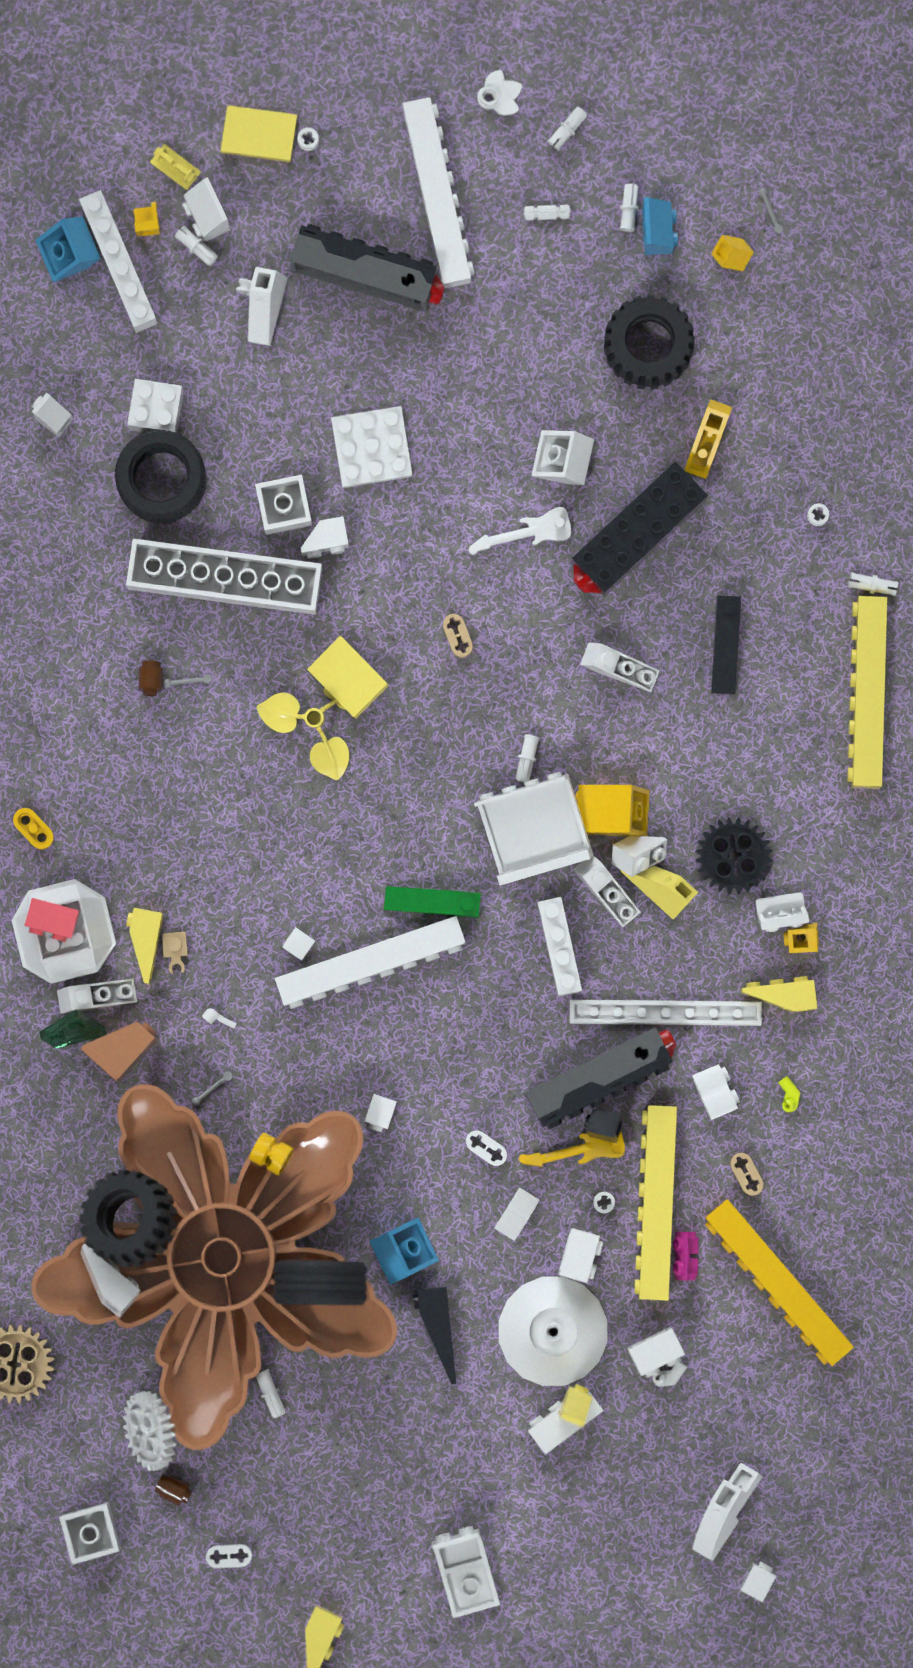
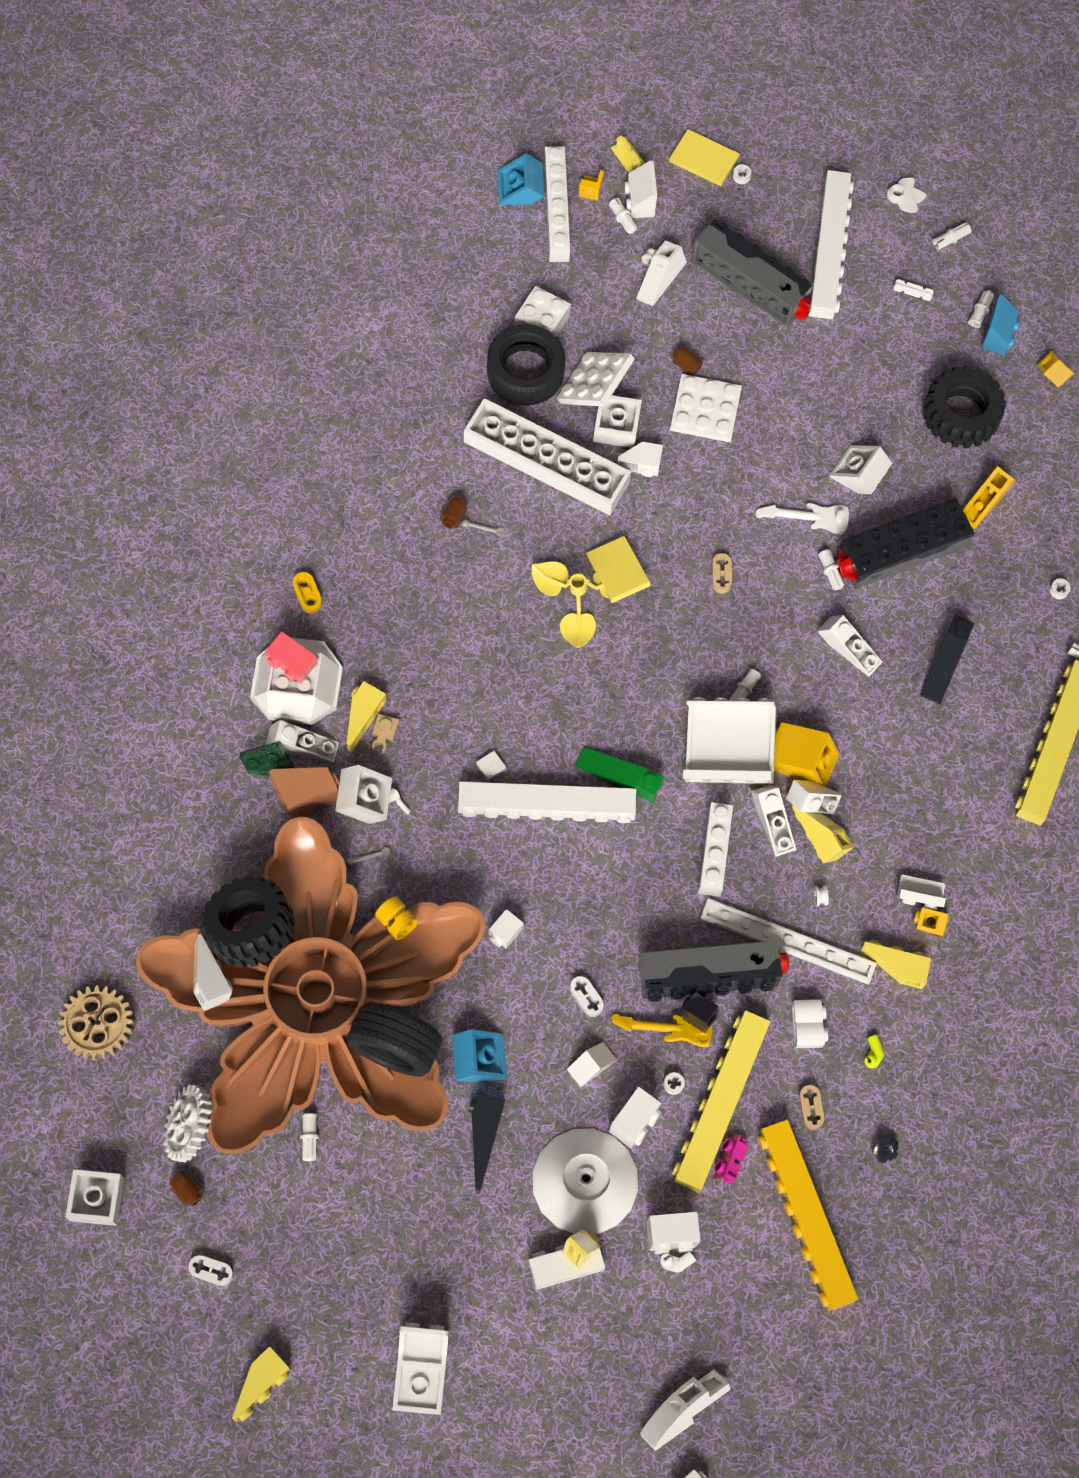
camera: 15 degrees right, 15 degrees down
(51, 414) = (457, 289): white slope -> none
(183, 1030) = (363, 794): none -> white brick
(242, 465) = (595, 378): none -> white plate
(331, 398) = (687, 360): none -> reddish brown brick
(570, 588) = (831, 569): none -> white axle
(682, 953) = (821, 895): none -> white bush
(755, 853) = (874, 826): black gear -> none
(833, 1188) = (885, 1149): none -> black plant

